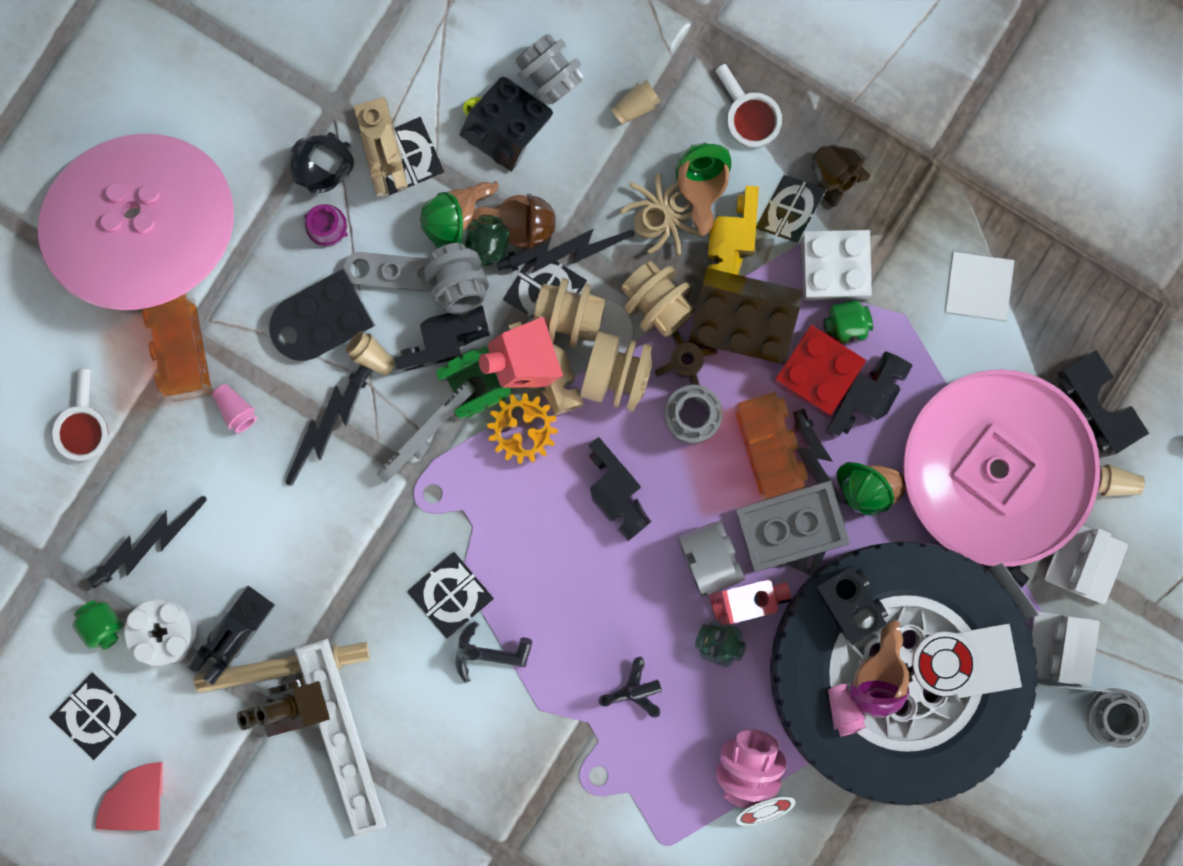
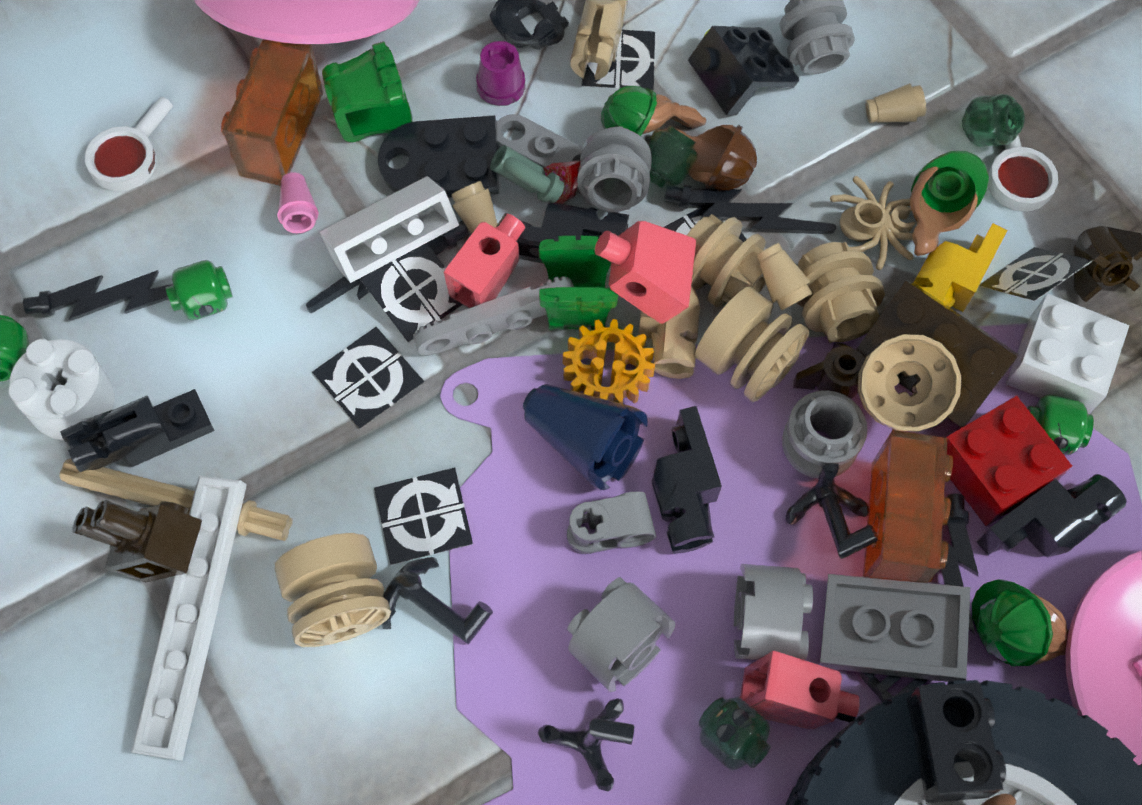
camera: 25 degrees right, 20 degrees down
(208, 513) = (199, 290): none -> green head
(239, 297) = (367, 94): none -> green piece
(316, 401) = (389, 228): none -> white brick
(357, 434) = (412, 290): none -> sticker
(358, 514) = (368, 377): none -> sticker
(392, 307) = (527, 174): none -> sand green plant
(399, 413) = (484, 262): none -> coral torso
(419, 297) = (568, 174): none -> red tile
(425, 681) = (331, 589): none -> tan wheel
(531, 488) = (587, 431): none -> dark blue cone
(584, 539) = (617, 520): none -> light grey piece
(617, 318) = (783, 277): none -> tan cone
(621, 619) = (619, 634): none -> light grey brick
(713, 87) = (993, 120): none -> clear green head
(713, 453) = (829, 497): none -> black piece
(734, 383) = (934, 392): none -> tan wheel

